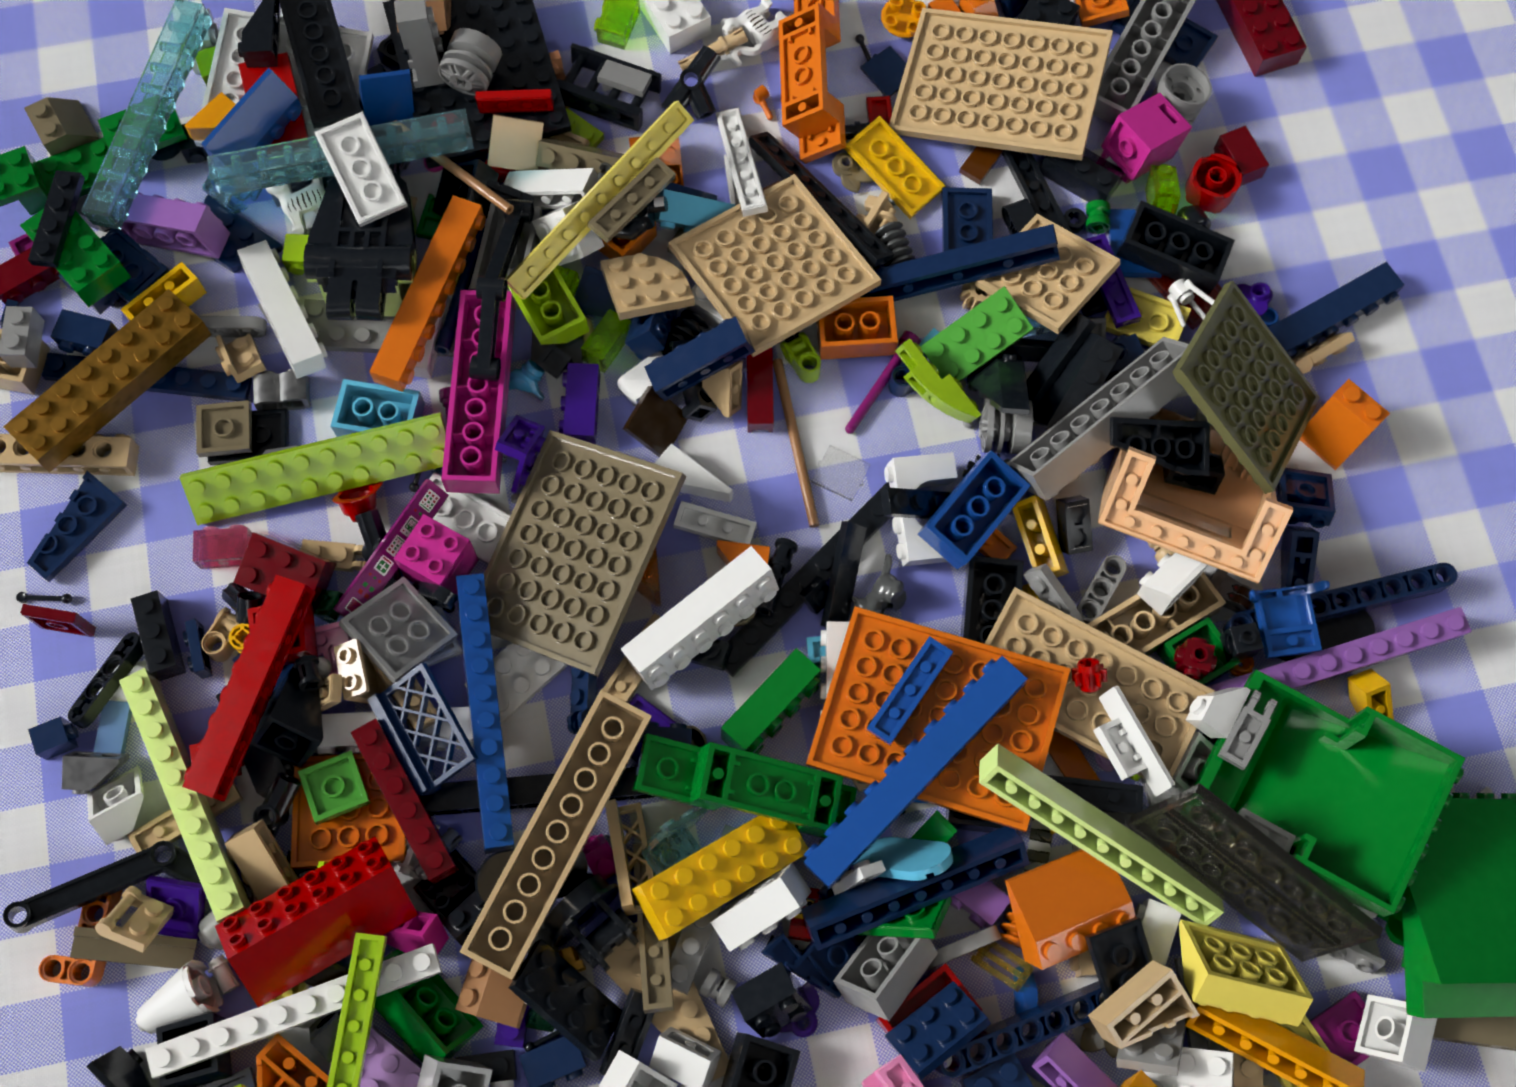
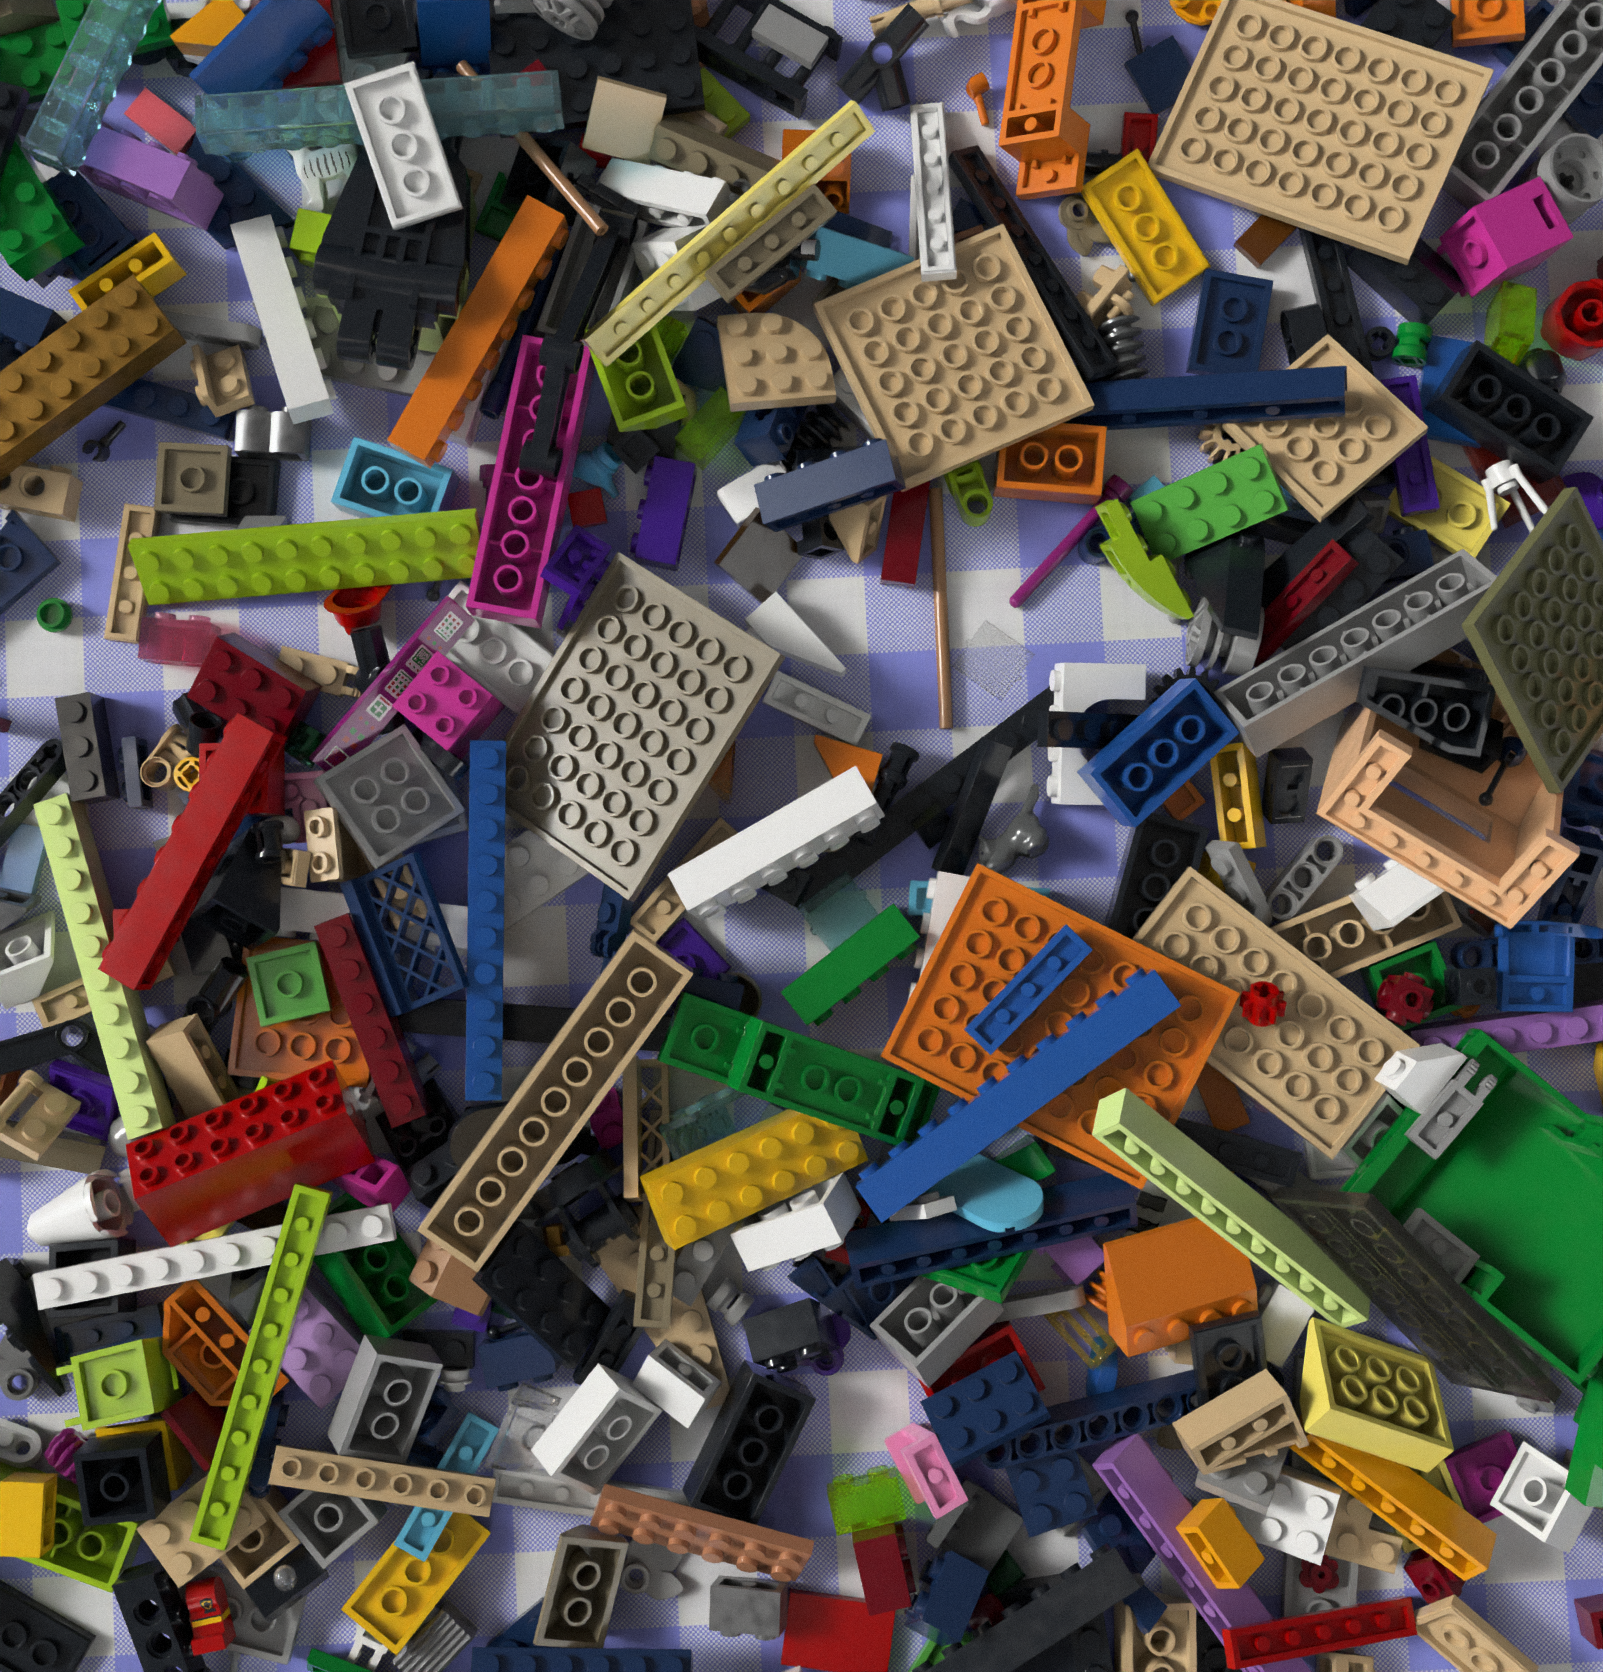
camera: 15 degrees right, 15 degrees up
(124, 543) = (54, 615): none -> green plate
(143, 418) = (104, 443): none -> black hand
(172, 188) = (161, 122): none -> coral tile
(180, 516) = (127, 595): none -> tan tile
(514, 101) = (630, 58): red tile -> none
(523, 407) = (587, 508): none -> red tile
(752, 667) = (837, 911): none -> clear light blue piece
(768, 177) = (966, 216): none -> dark blue tile
(1057, 387) = (1303, 597): none -> dark red plate
(1129, 745) = (1293, 1101): white bracket -> none
(1231, 483) = (1508, 760): none -> hinge

